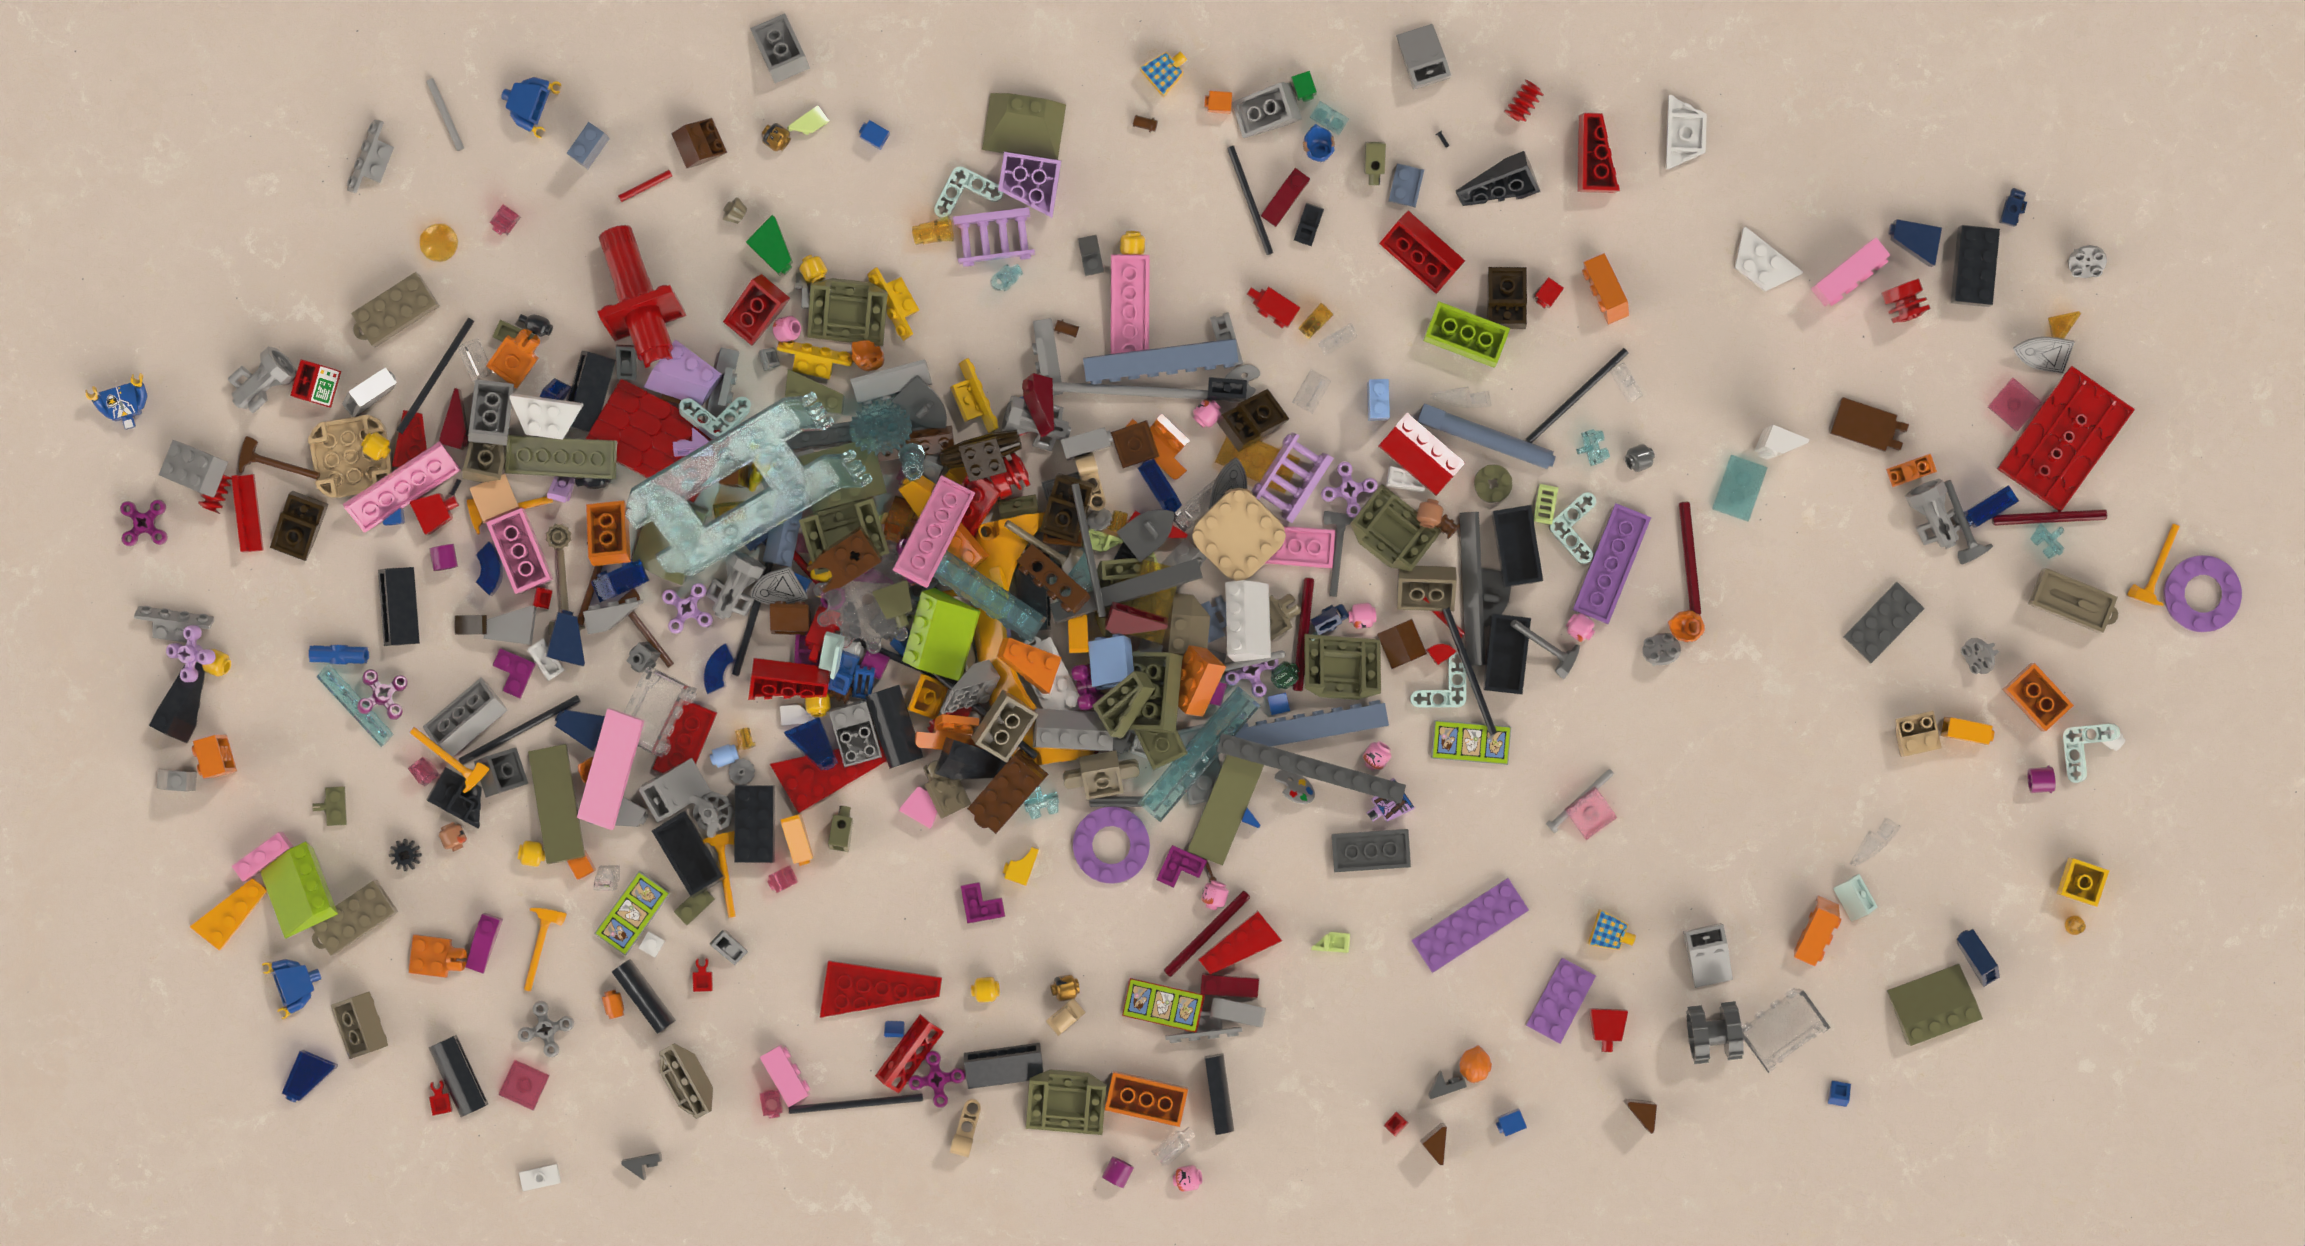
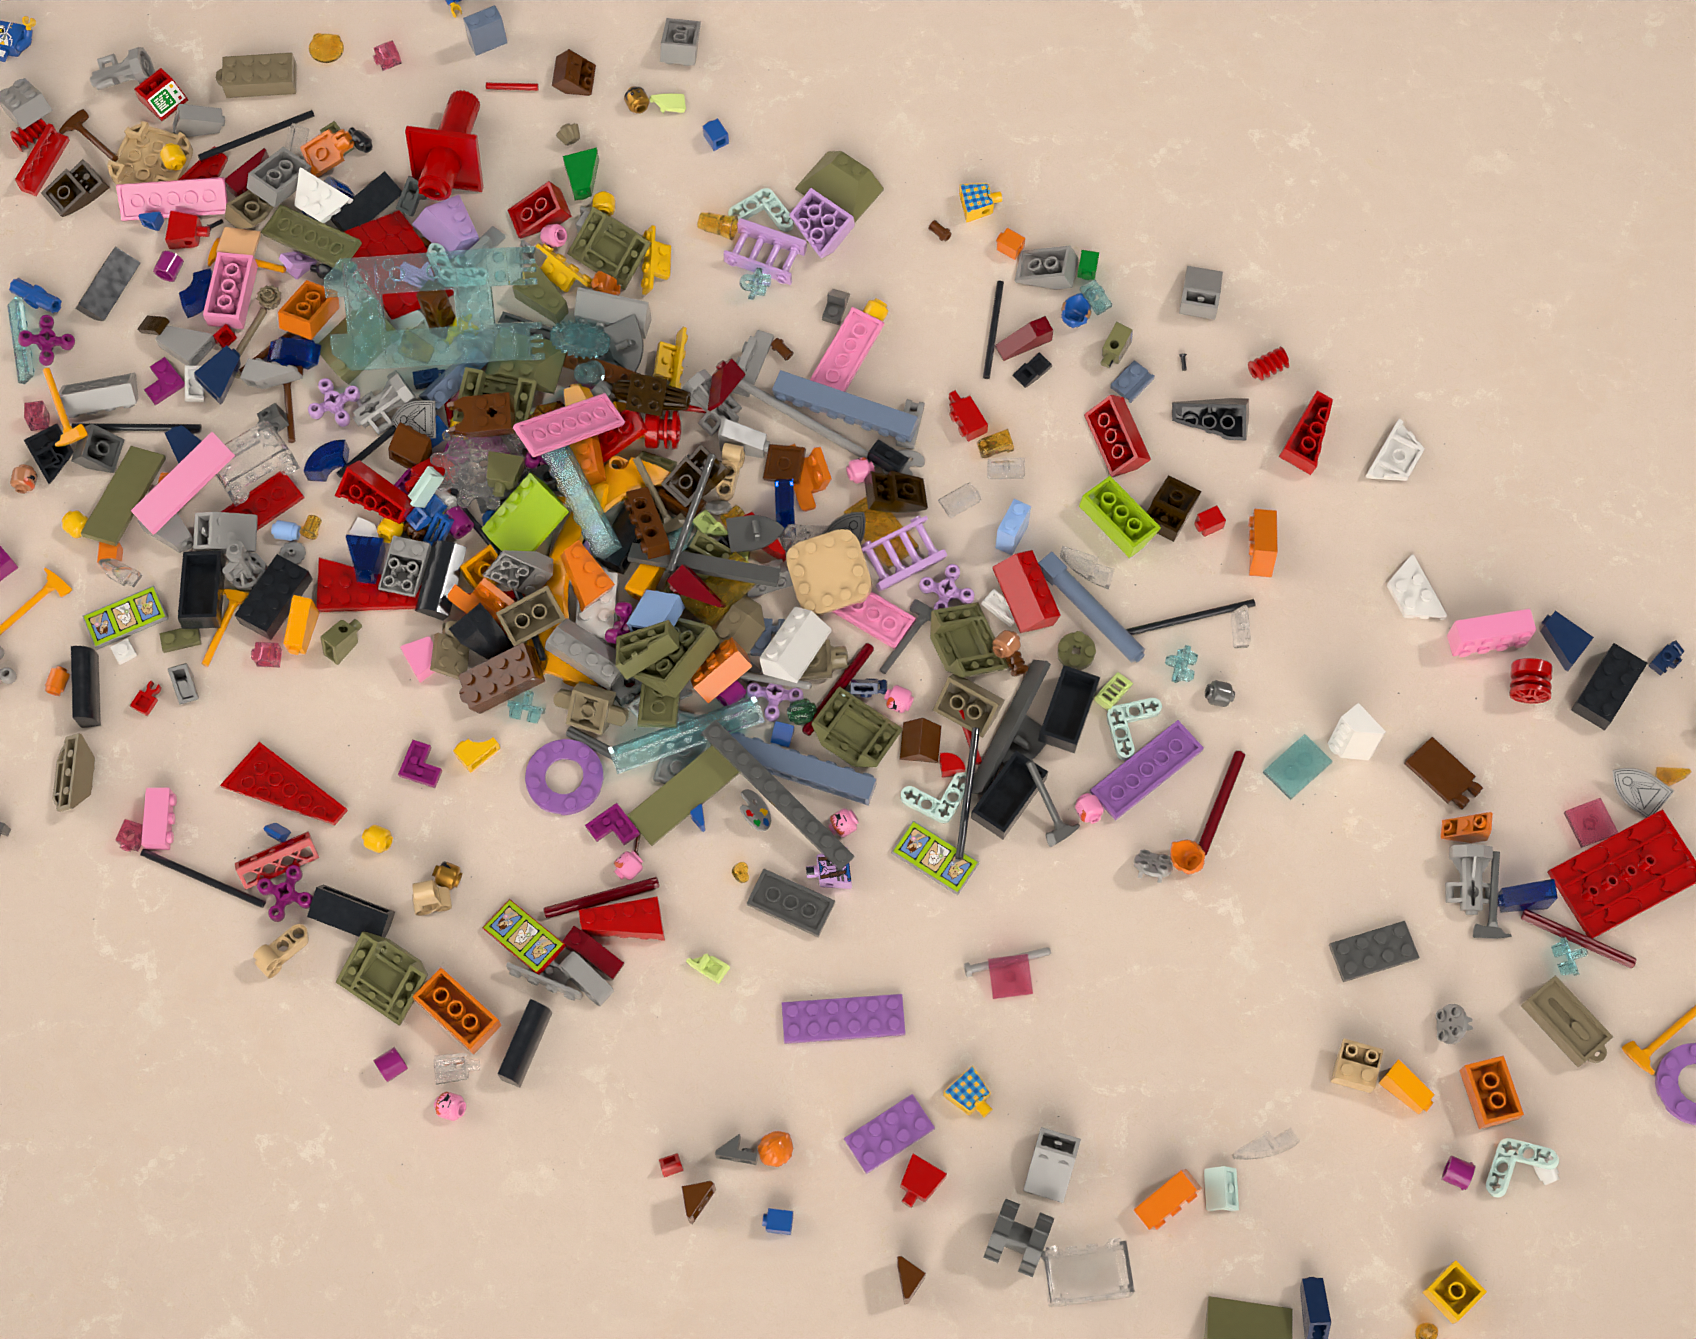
camera: 30 degrees right, 20 degrees down
(1312, 846) = (740, 872): none -> clear yellow piece

